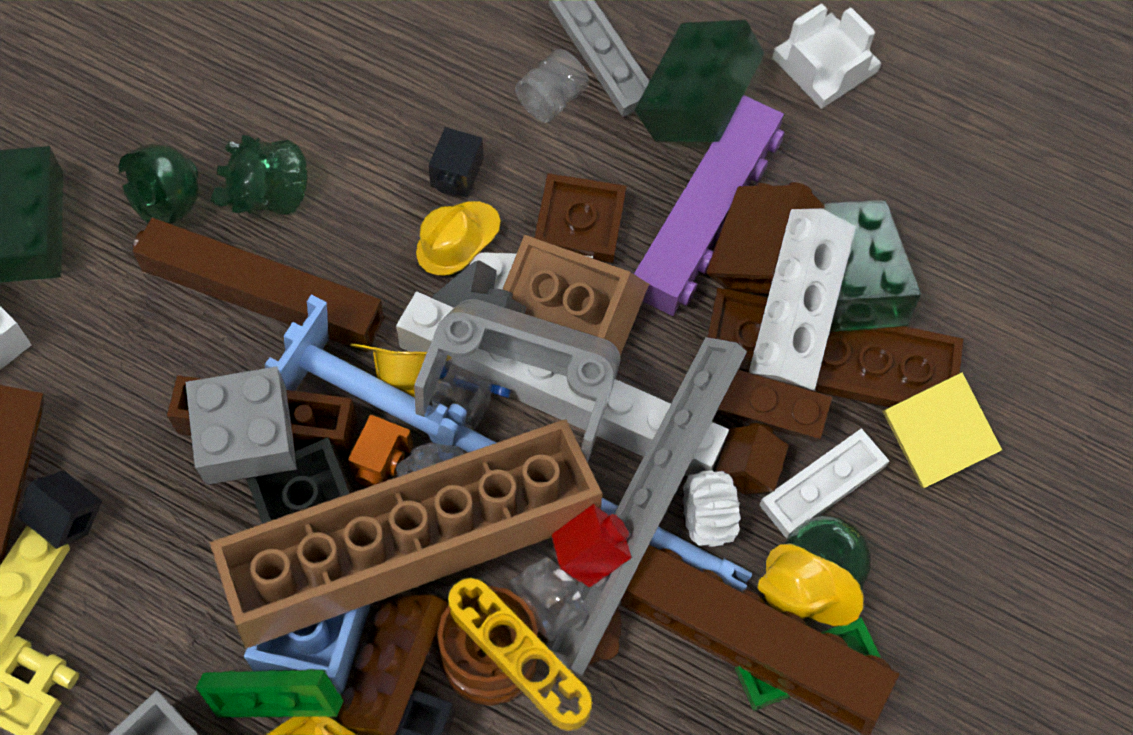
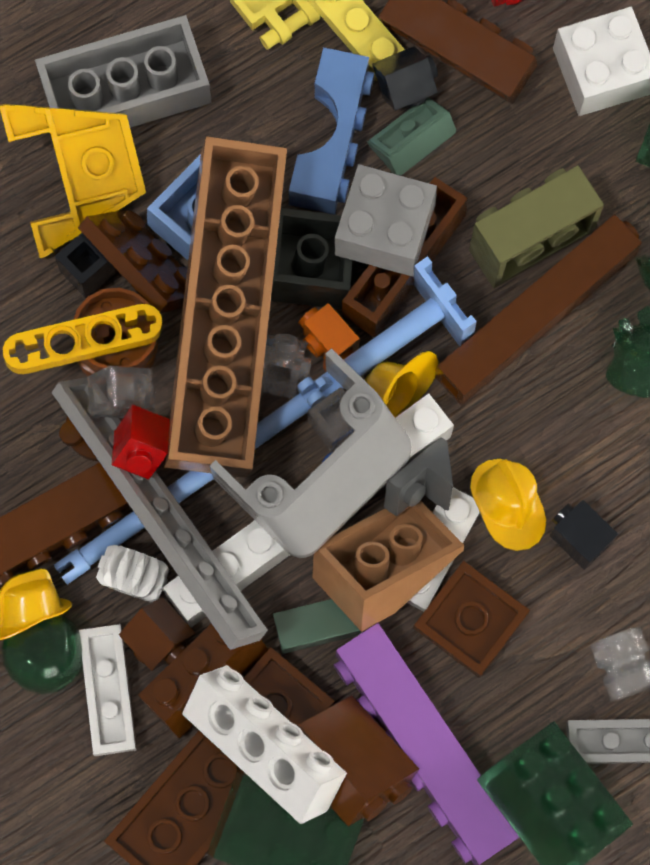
camera: 120 degrees right, 10 degrees up
(93, 570) = (319, 174): none -> medium blue arch
(122, 483) = (413, 136): none -> sand green slope
(176, 311) = (535, 225): none -> olive brick
(270, 693) = (167, 165): green plate -> none
(662, 340) = (312, 626): none -> sand green slope
(942, 430) = (94, 818): light yellow tile -> none

